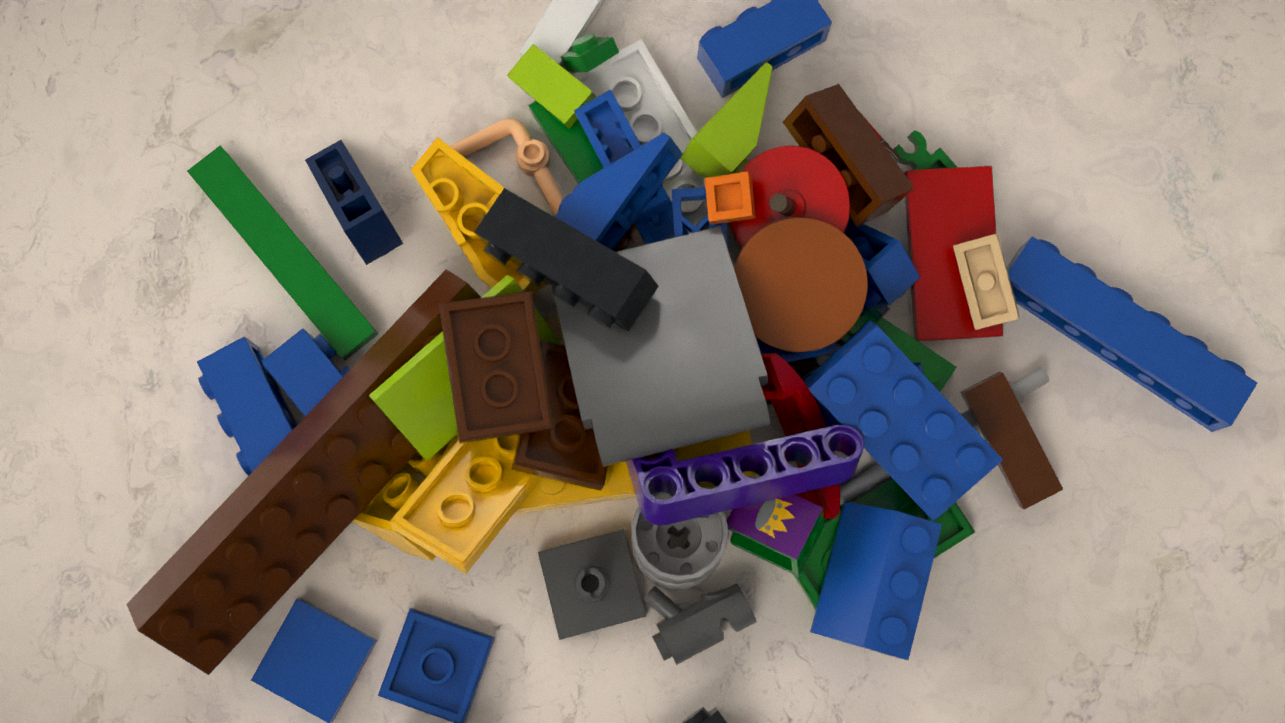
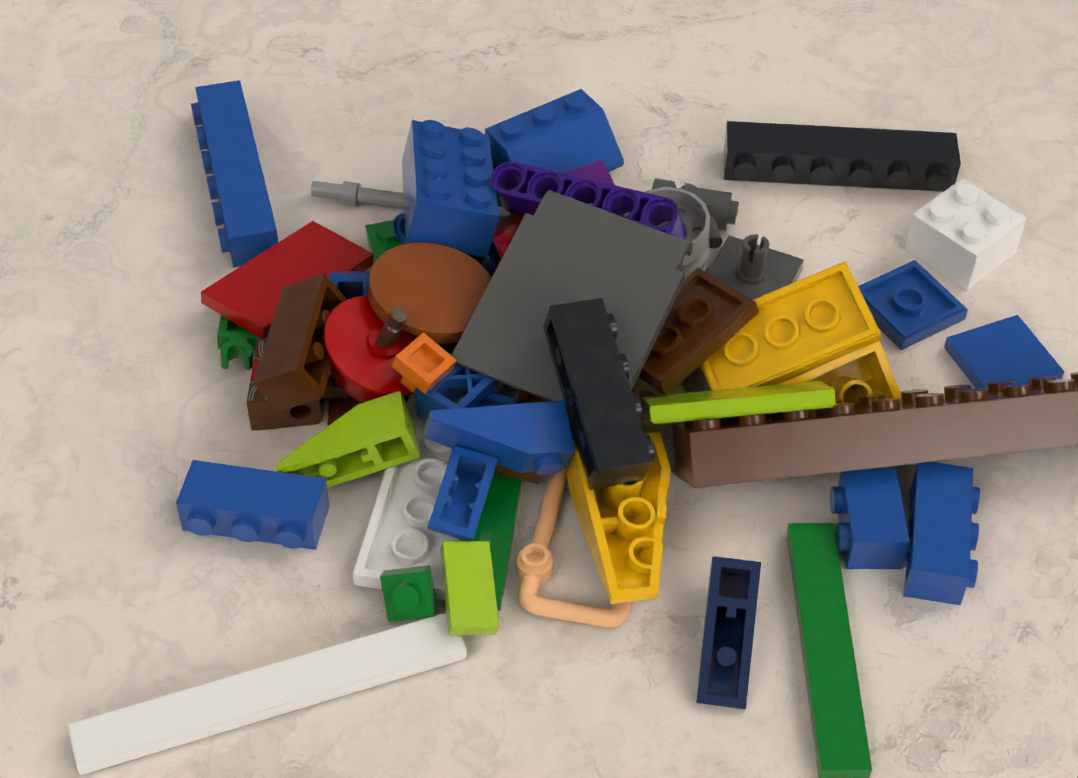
camera: 140 degrees left, 30 degrees down
(495, 367) = (717, 358): reddish brown tile -> none
(986, 281) = (292, 233): tan plate -> none
(1013, 439) = (377, 167): reddish brown tile -> none

